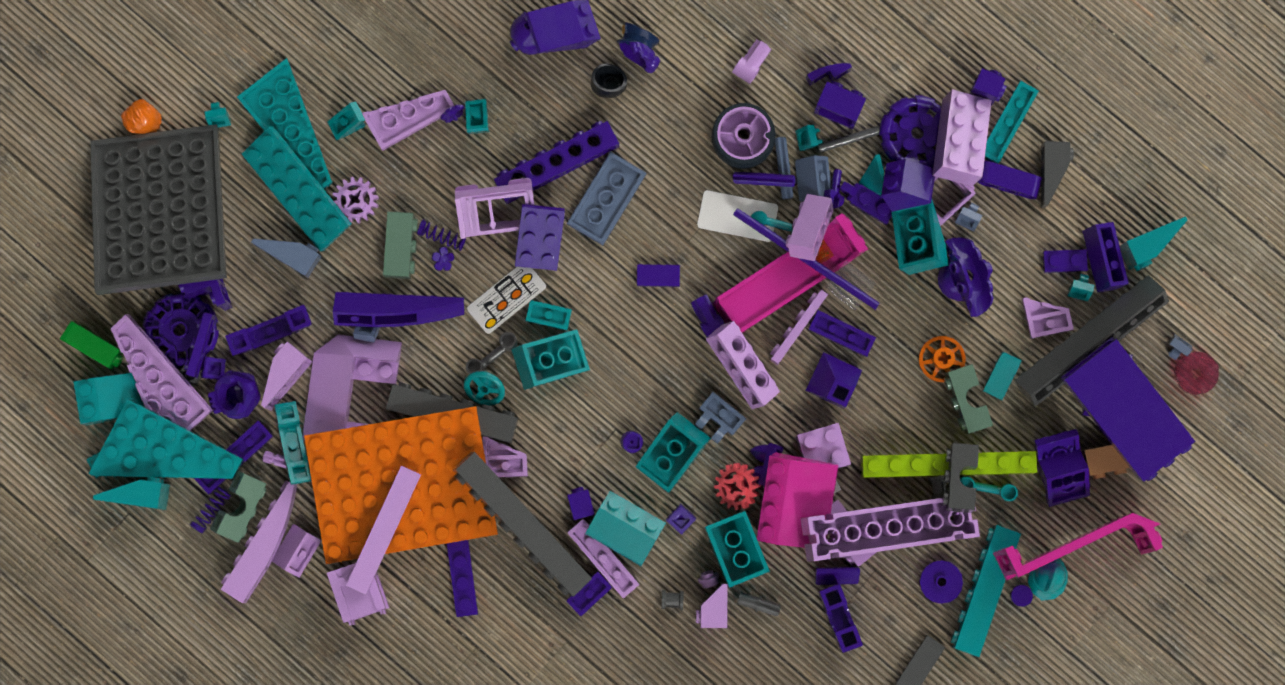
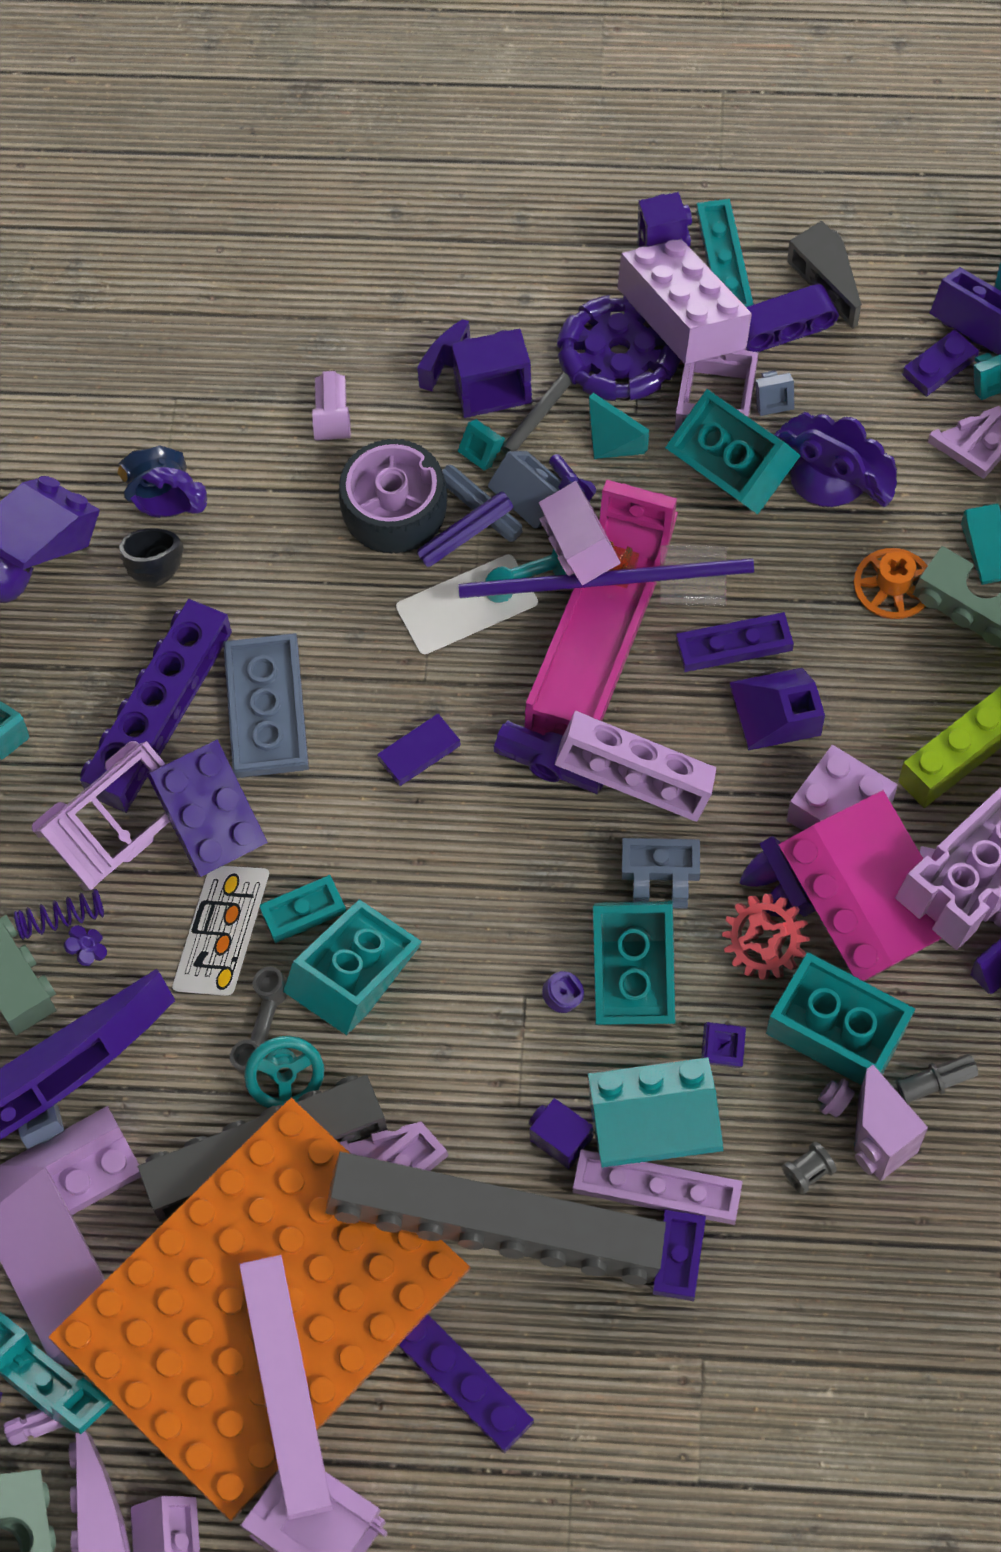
camera: 35 degrees left, 20 degrees down
(792, 333) = (669, 687): lavender plate -> none
(867, 201) = (628, 466): dark purple hinge -> none
(907, 184) = (662, 397): dark purple slope -> none

